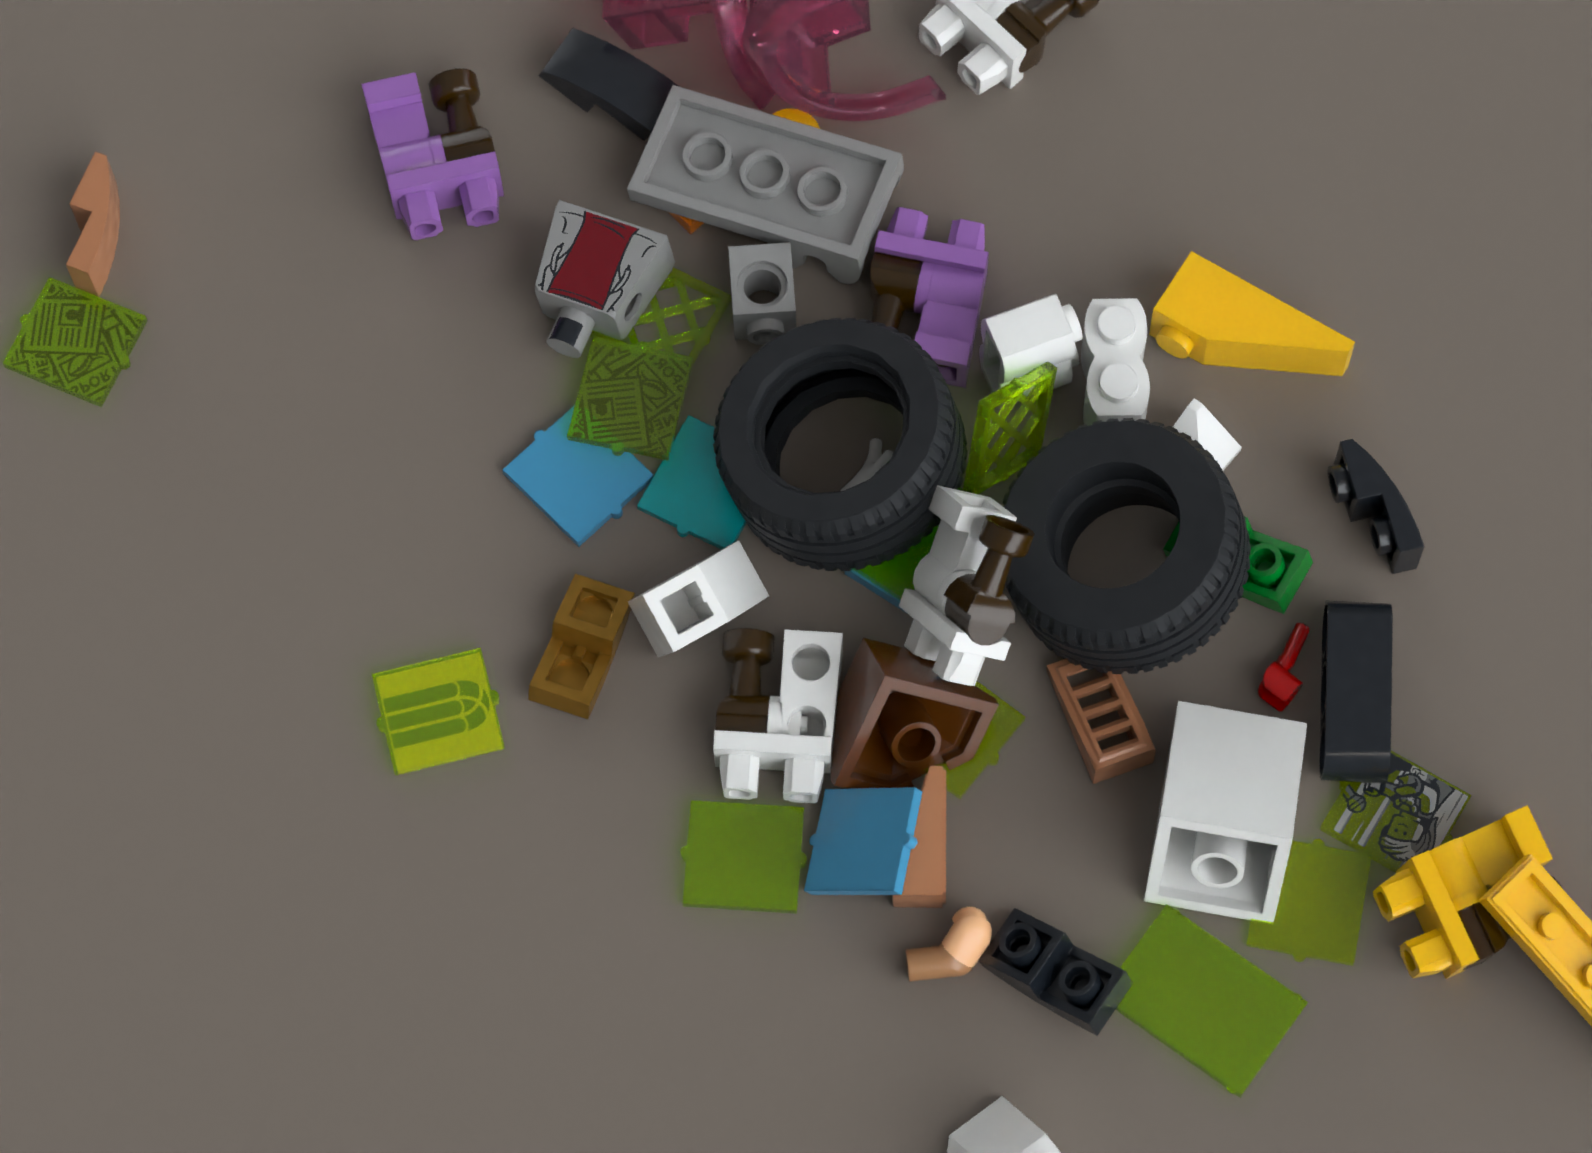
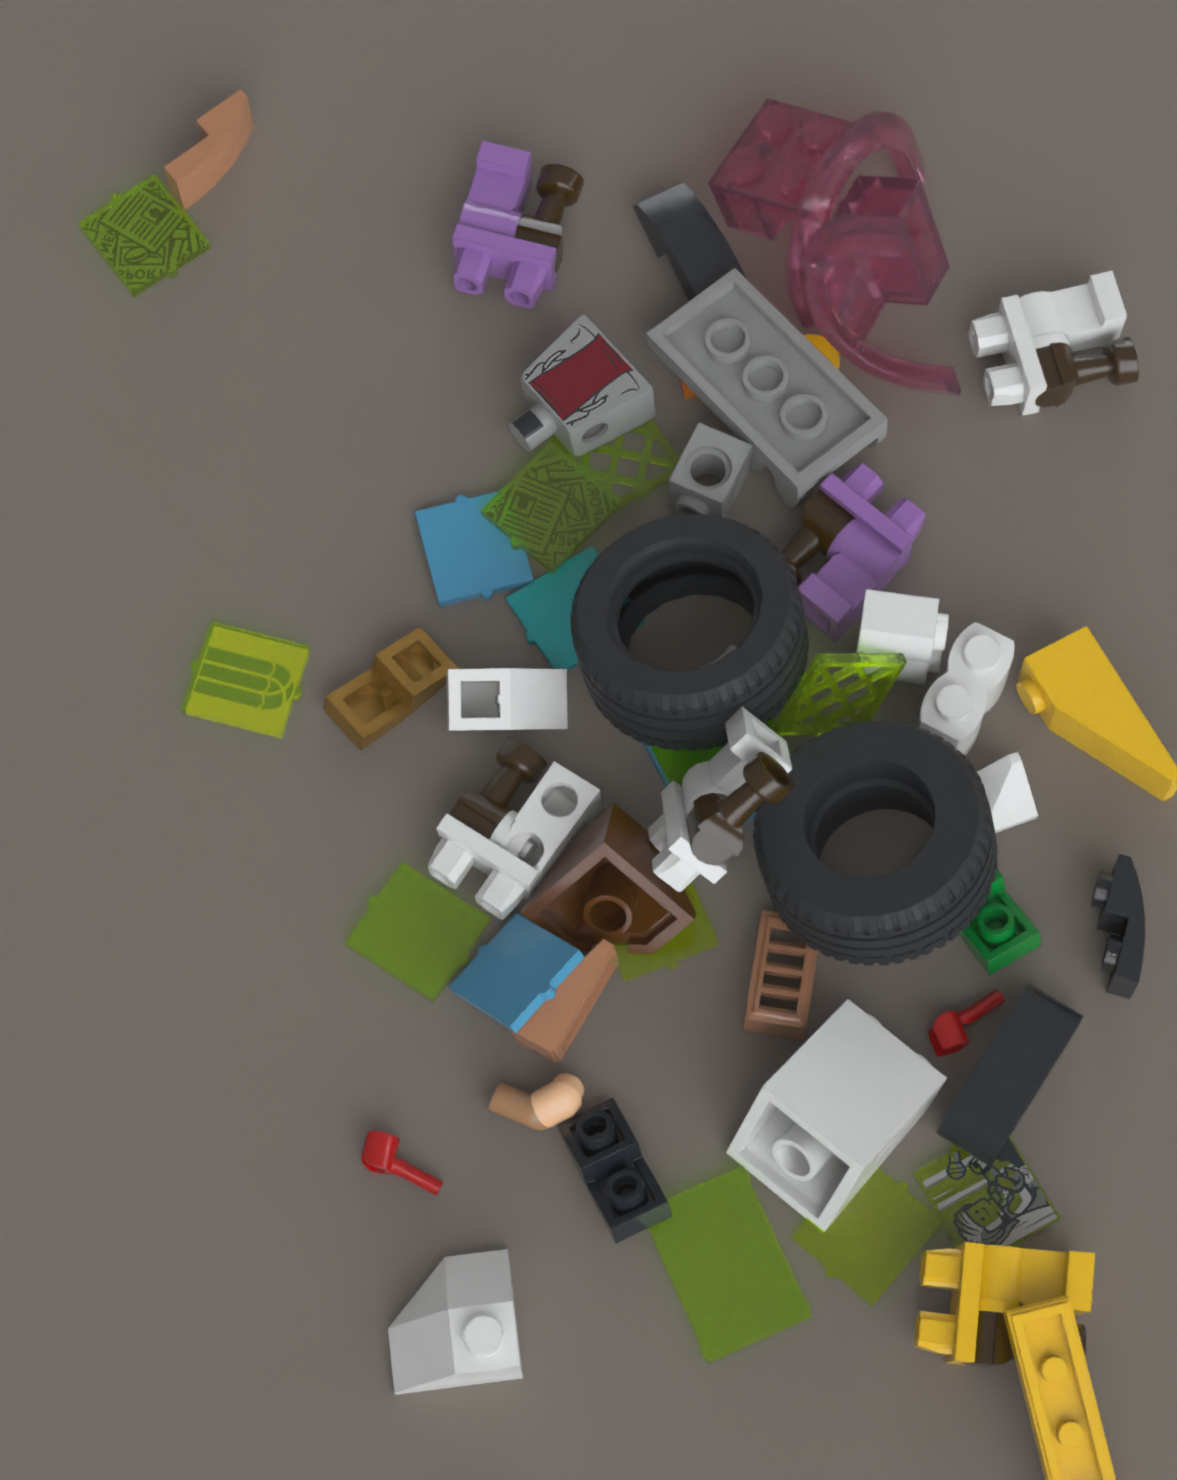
camera: 30 degrees right, 0 degrees up
(835, 1078) = (380, 1158): none -> red hand

